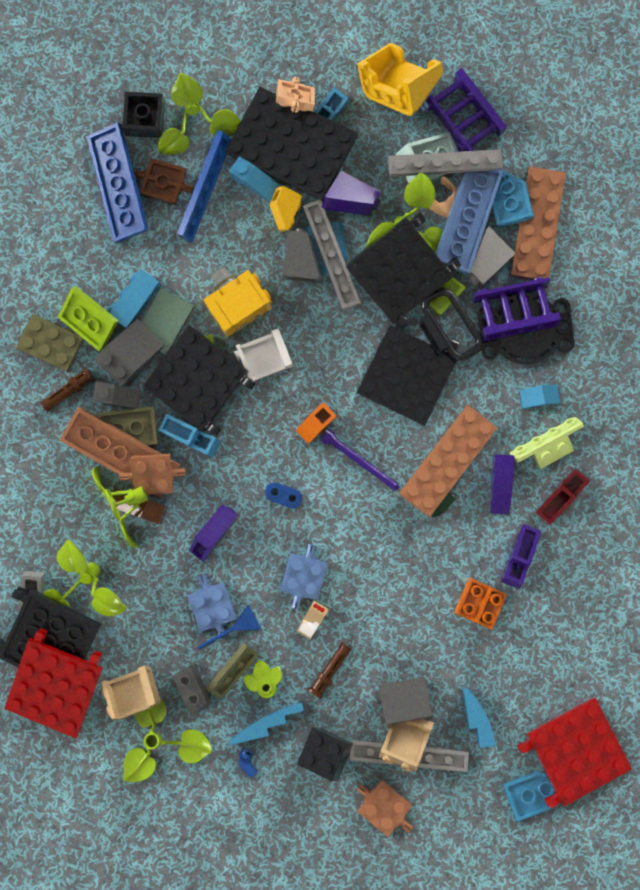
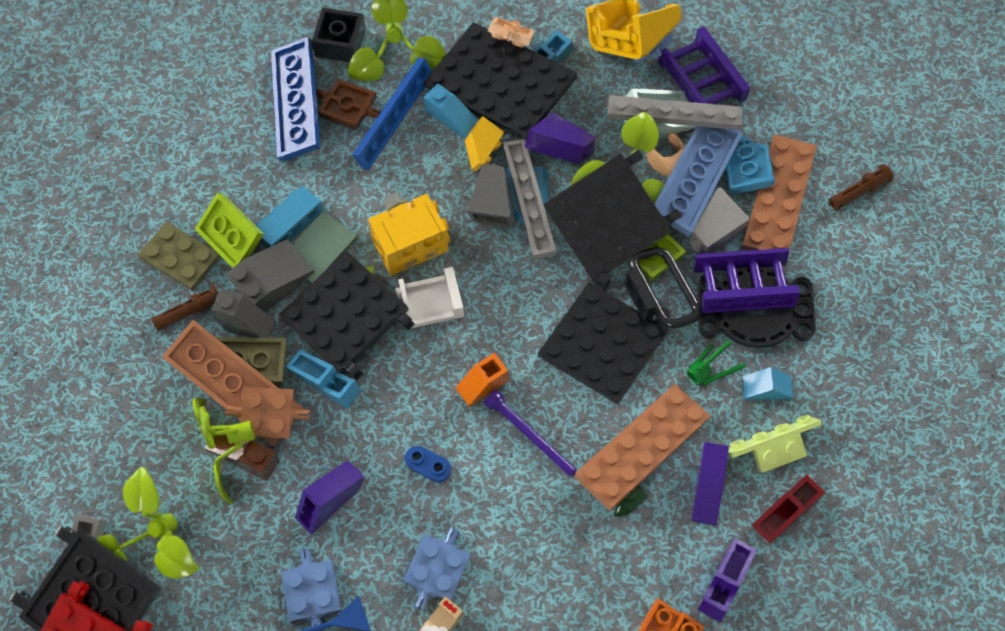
camera: 10 degrees right, 20 degrees down
(486, 392) = (700, 370): none -> green plant
(611, 203) = (869, 182): none -> reddish brown pin

